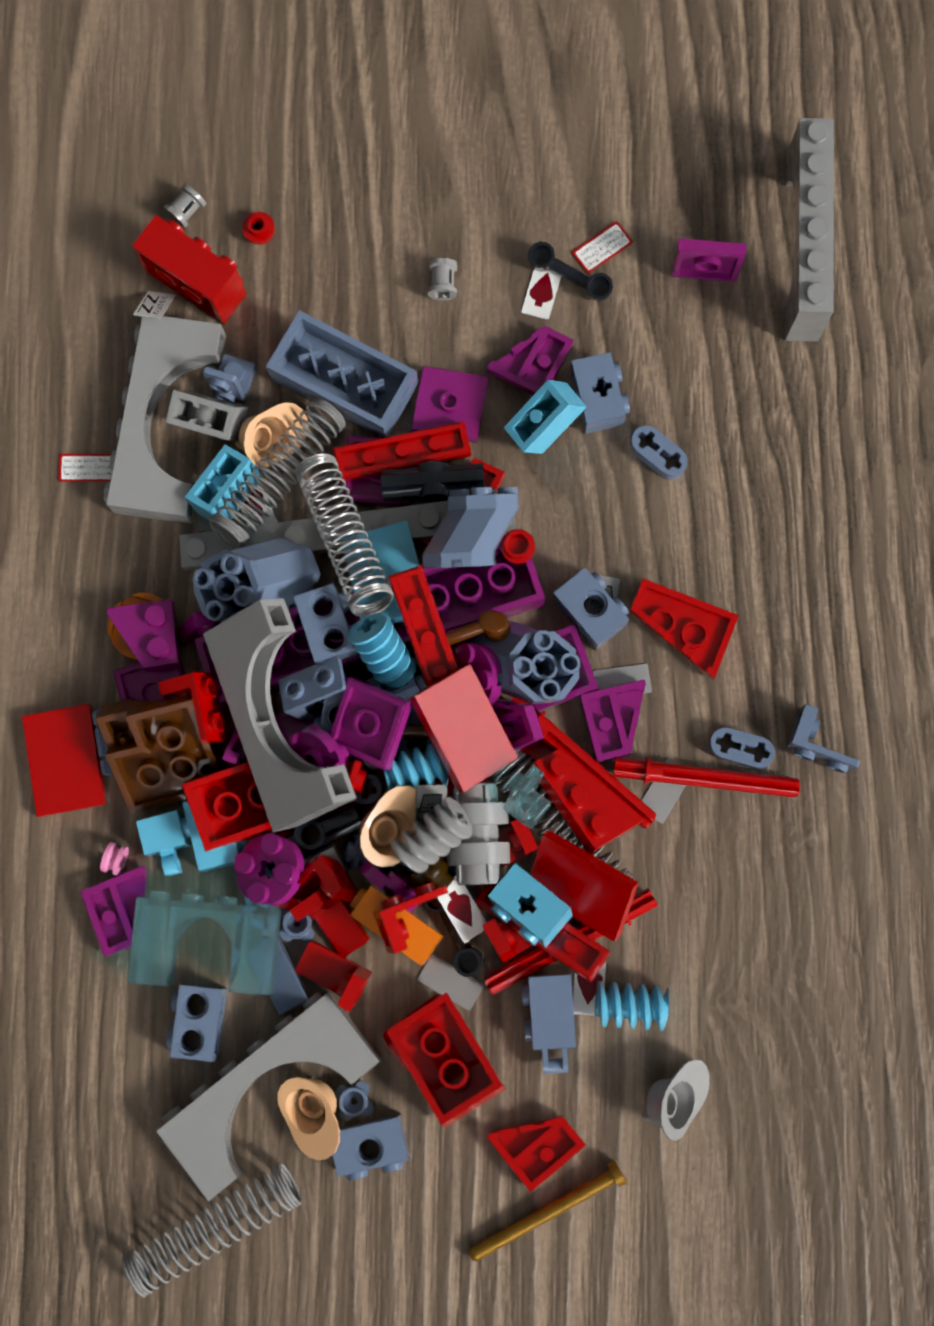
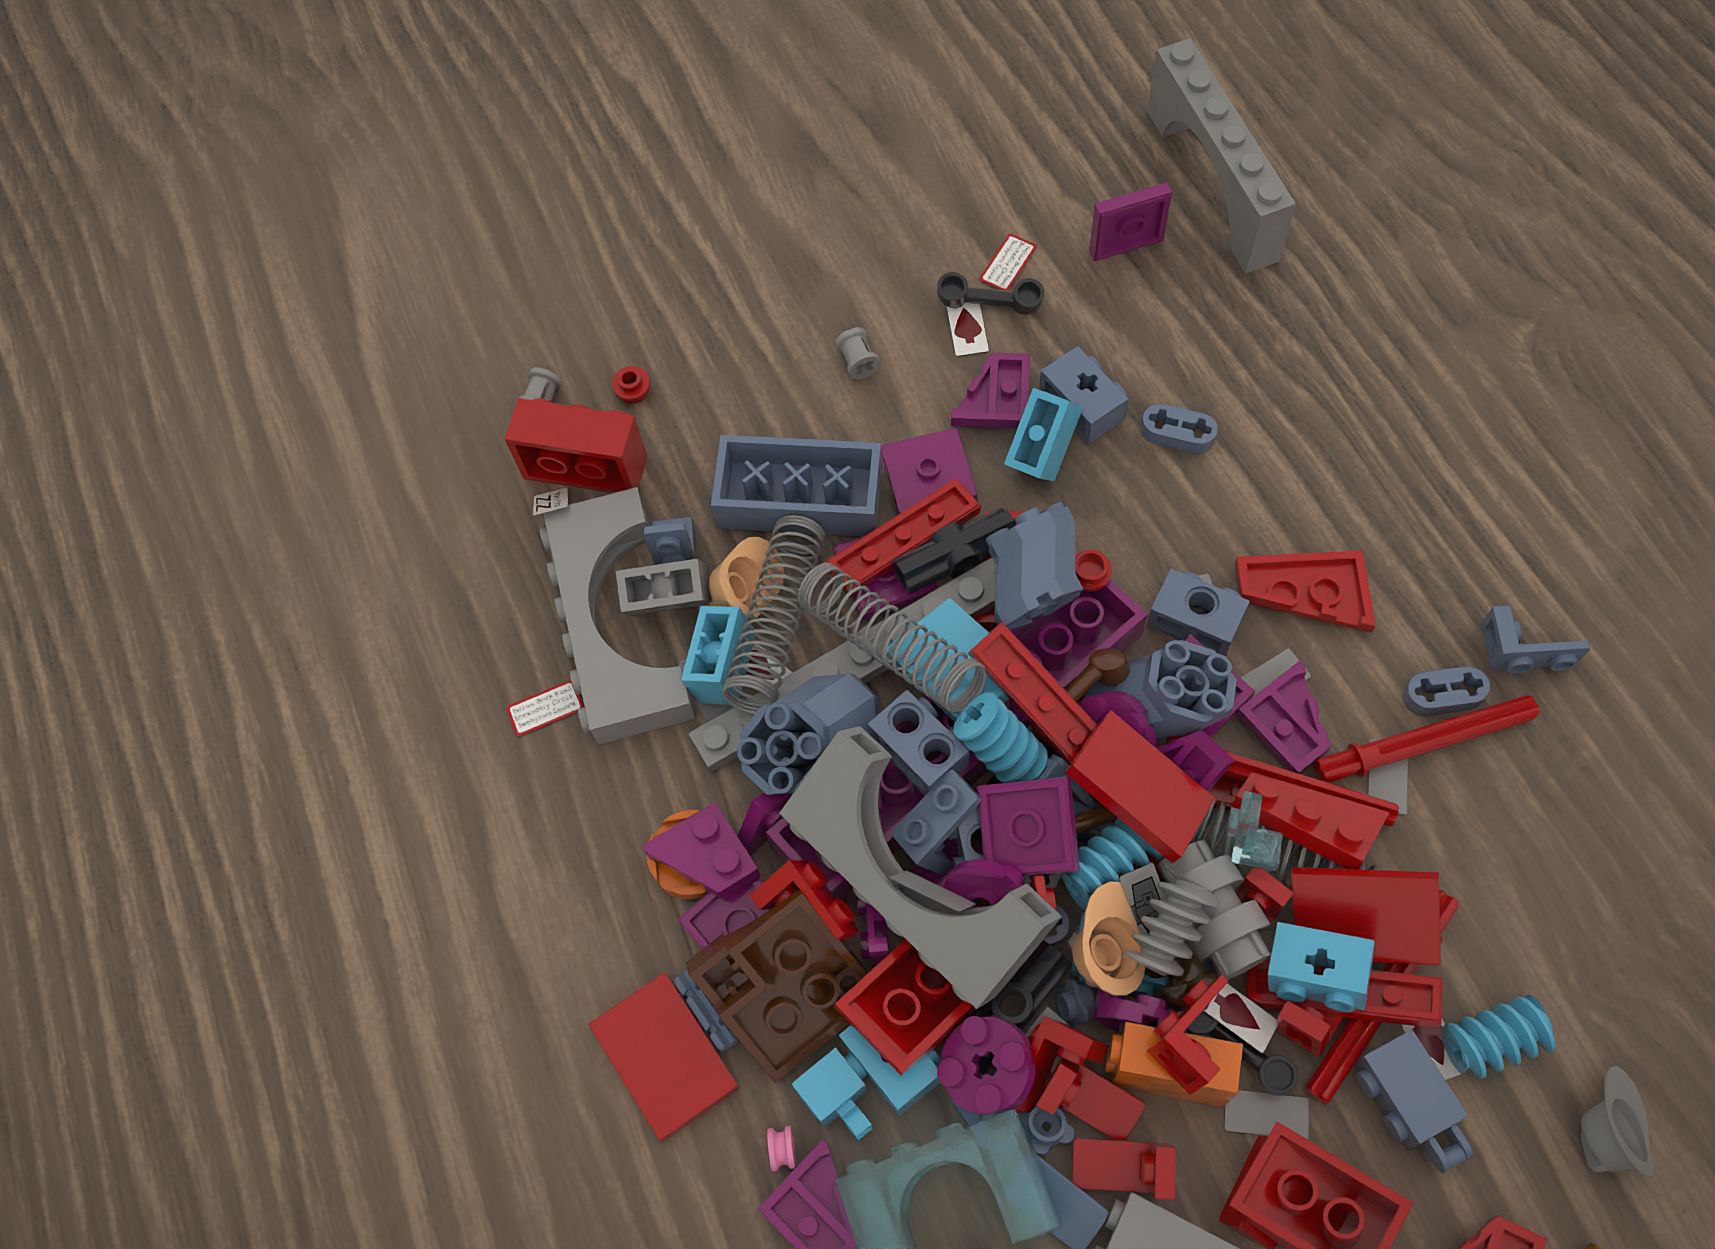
camera: 25 degrees left, 15 degrees down
(281, 738) = (932, 891): none -> light grey sticker

